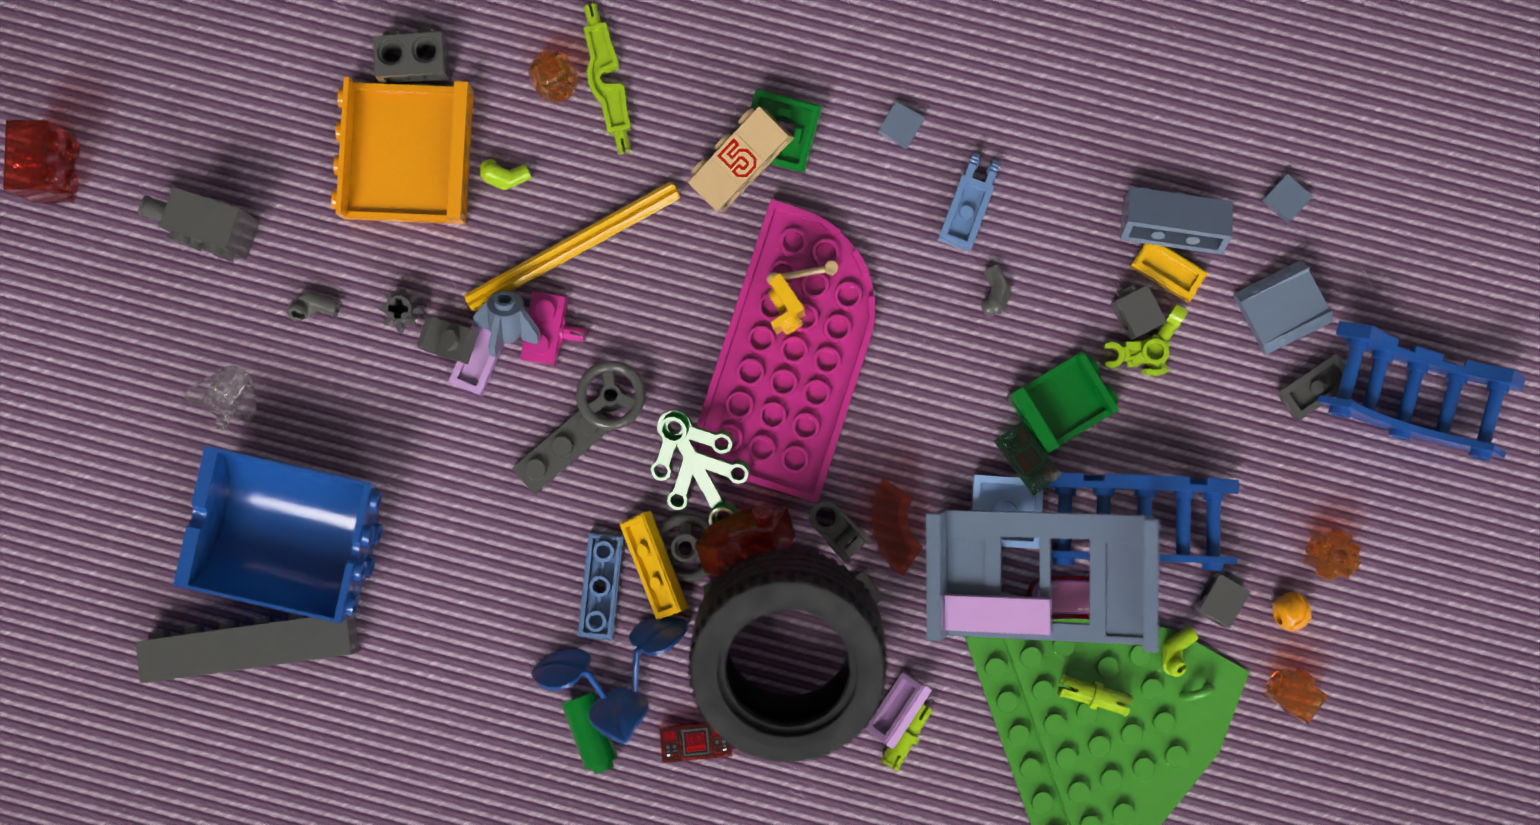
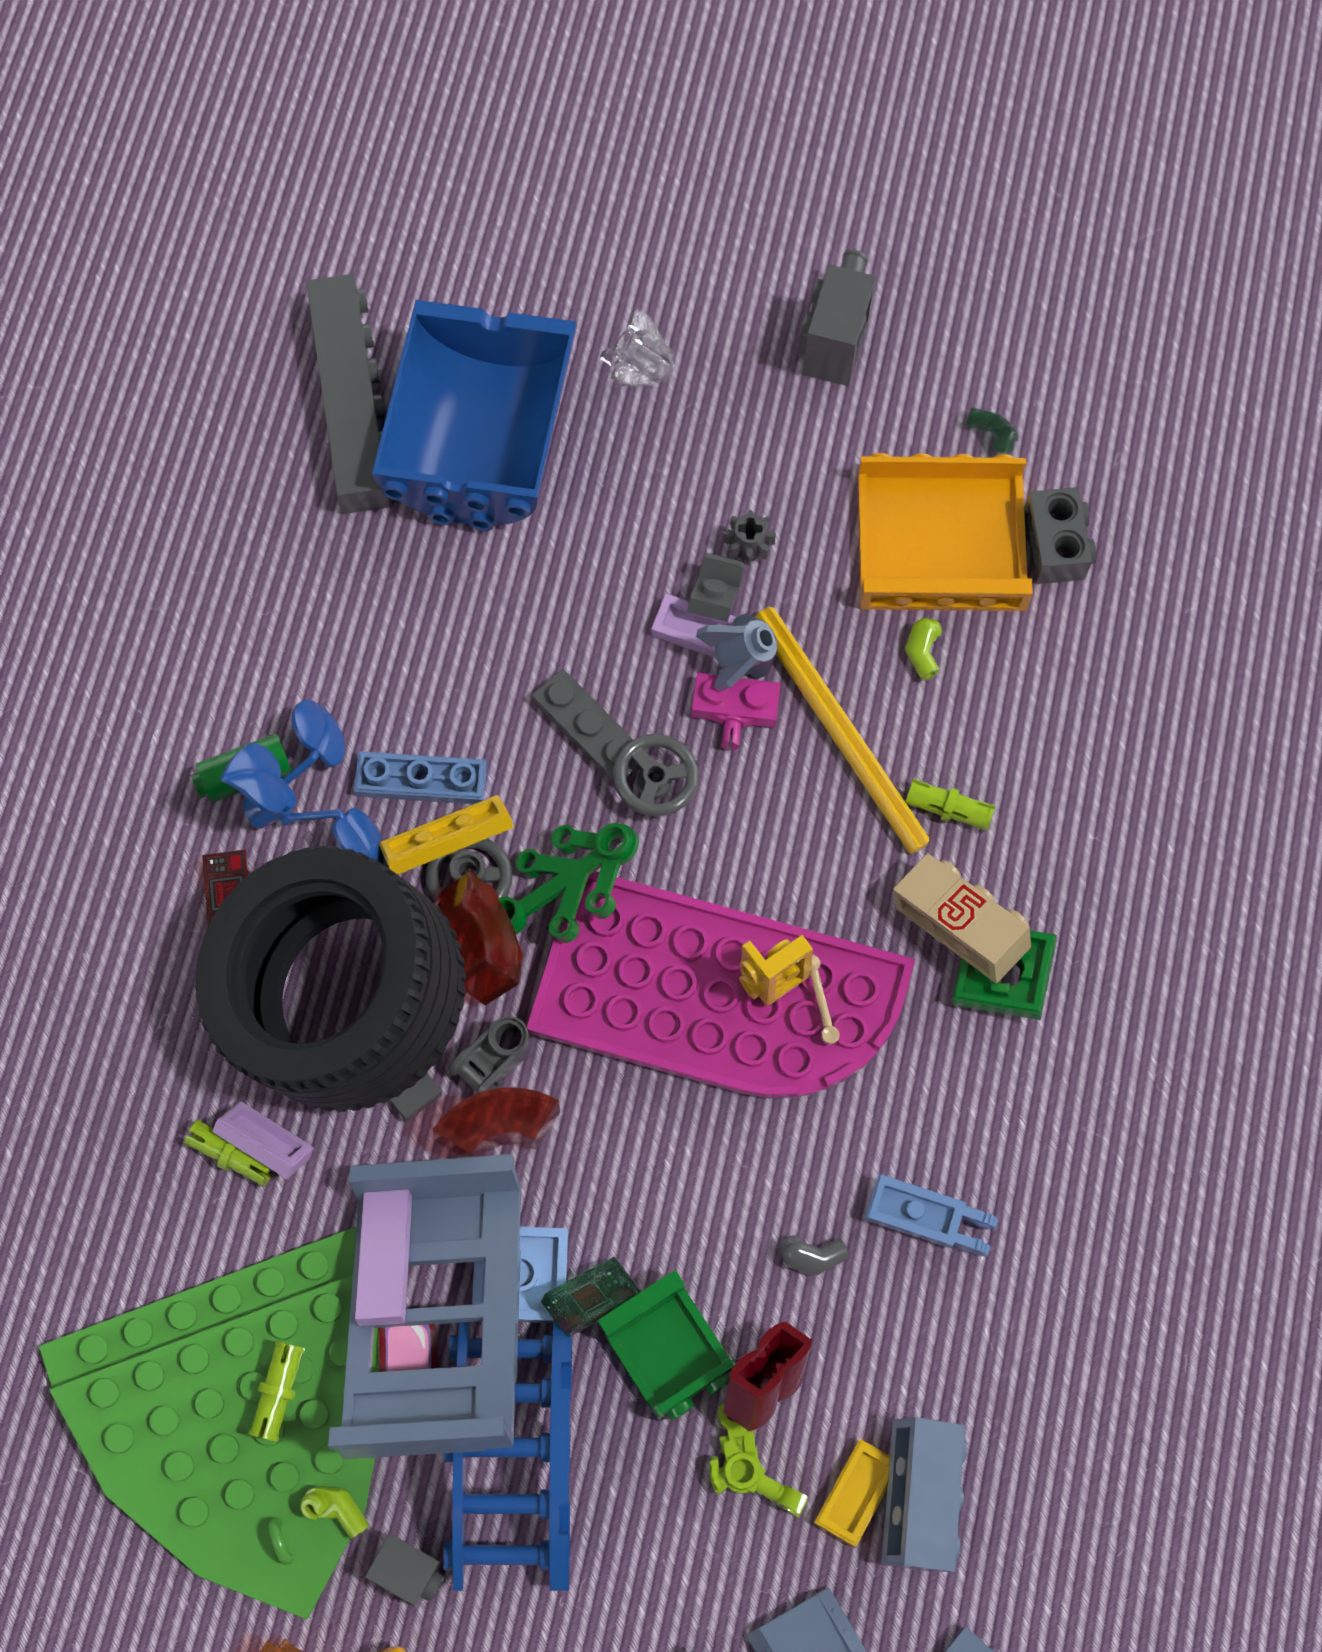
camera: 85 degrees right, 15 degrees down
(40, 161) = (898, 152): clear red brick -> none
(306, 99) = (995, 424): none -> clear green arm
(311, 303) = (752, 441): dark grey arm -> none
(553, 76) = (1050, 695): clear orange head -> none
(602, 62) = (1032, 767): lime piece -> none
(641, 163) = (950, 804): none -> lime pin
(901, 125) = (1026, 1126): sand blue tile -> none
(1092, 328) = (767, 1376): none -> dark red brick
(1137, 311) = (795, 1445): dark grey brick -> none

